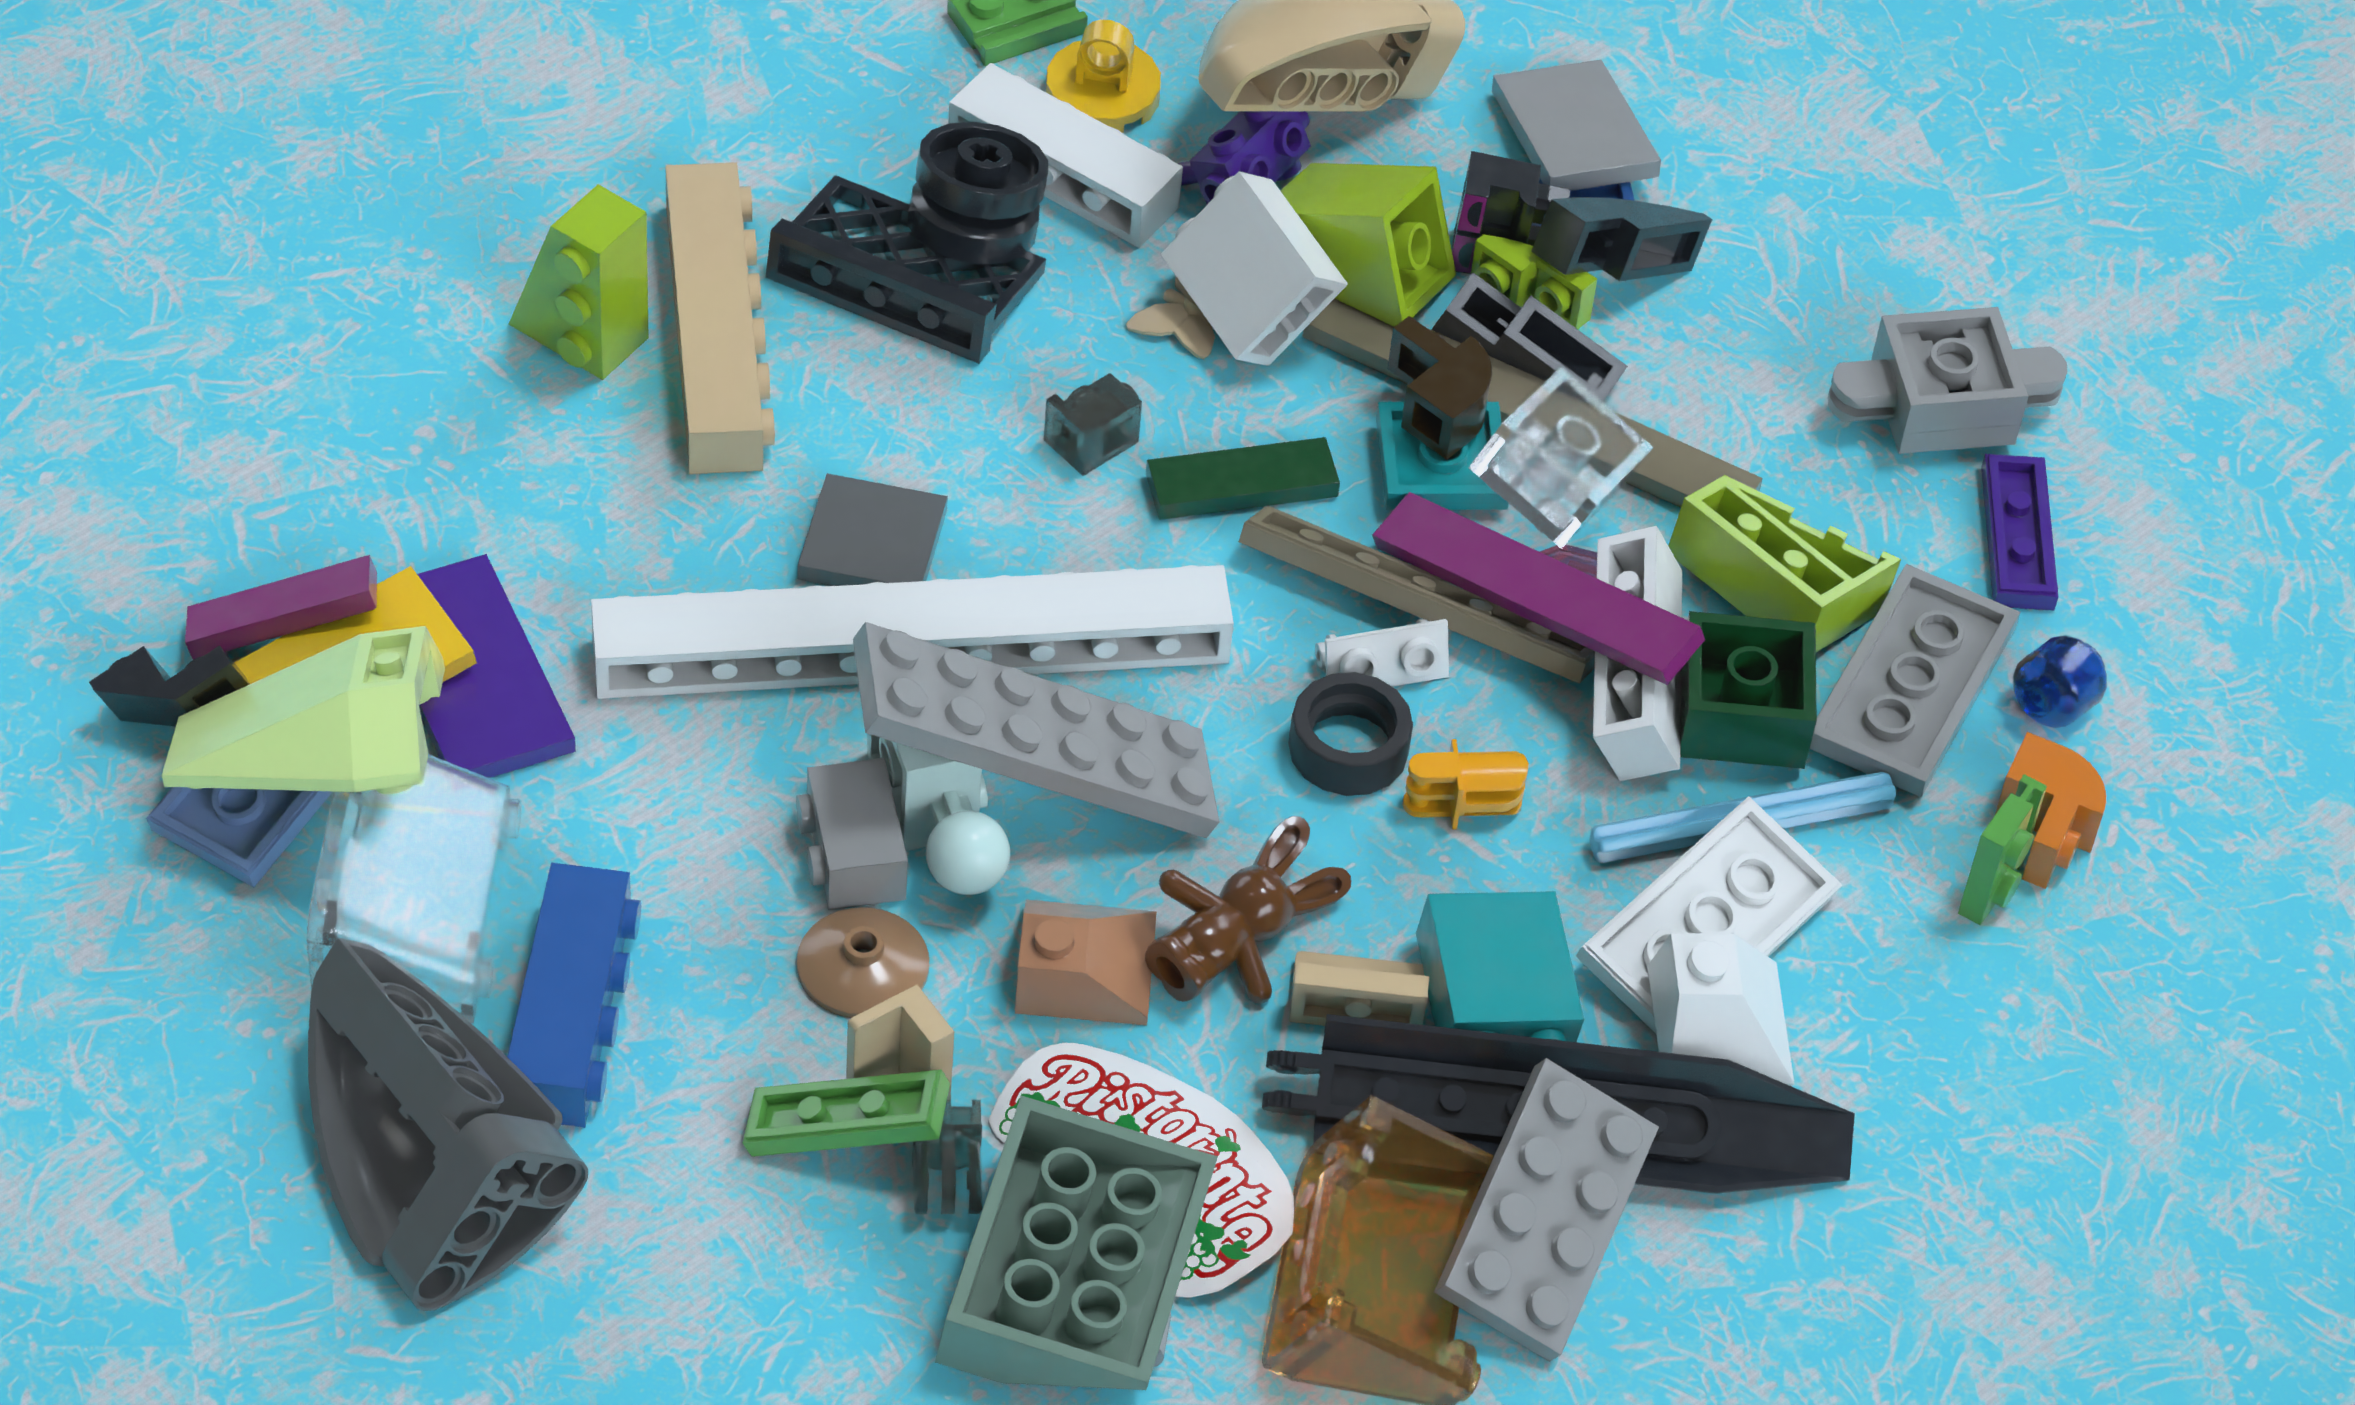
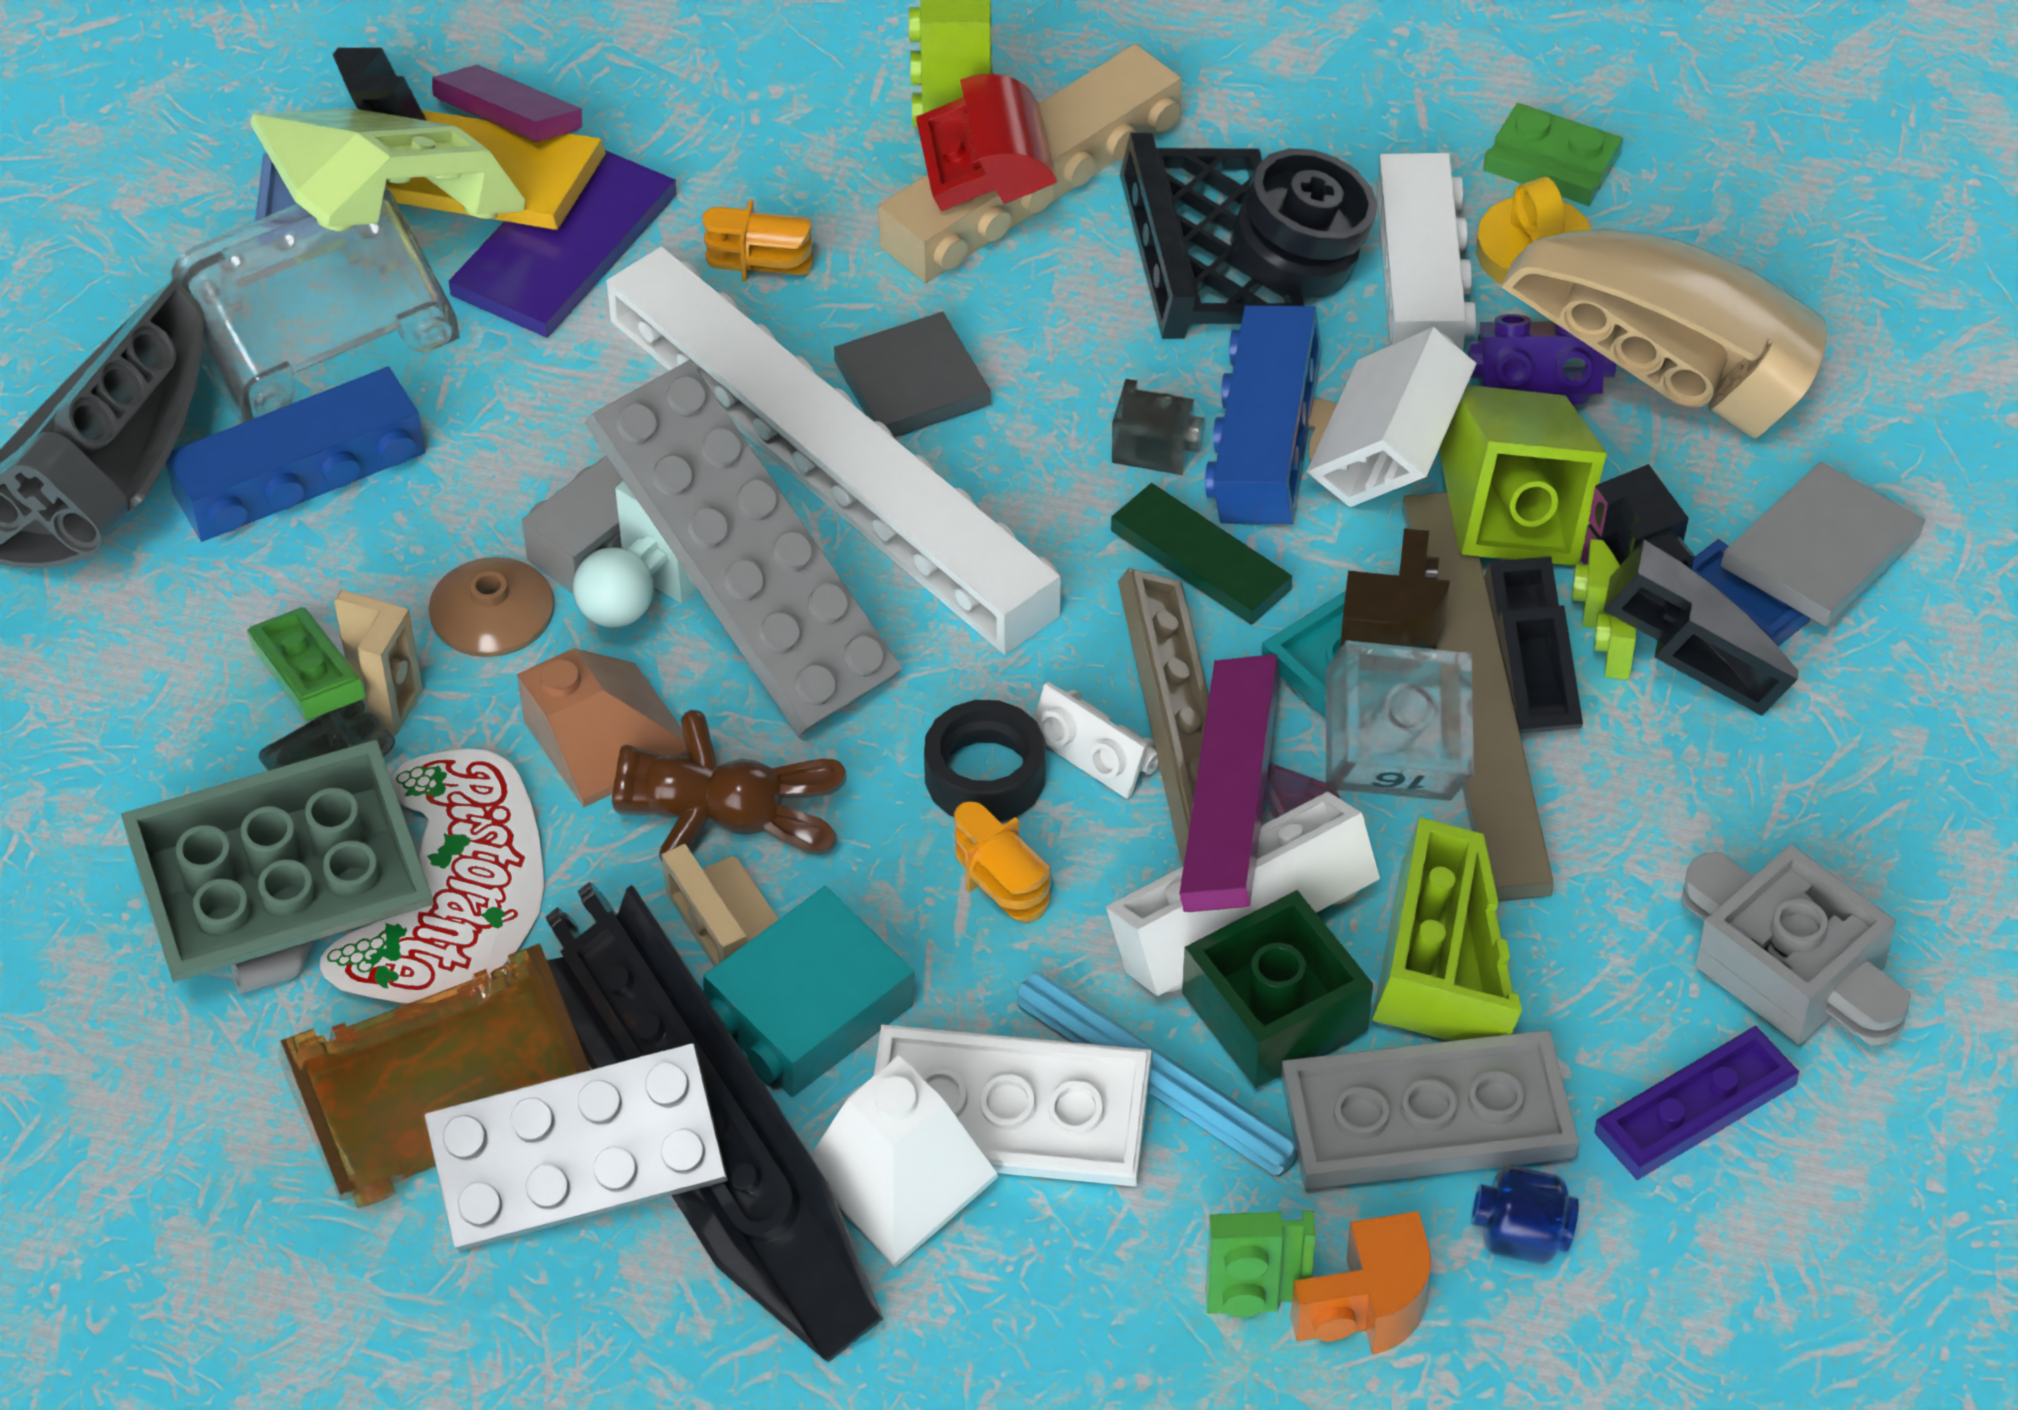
camera: 60 degrees right, 0 degrees up
(627, 541) = (757, 241): none -> light orange arm
(715, 320) = (986, 143): none -> red brick
(1149, 345) = (1265, 415): none -> blue brick

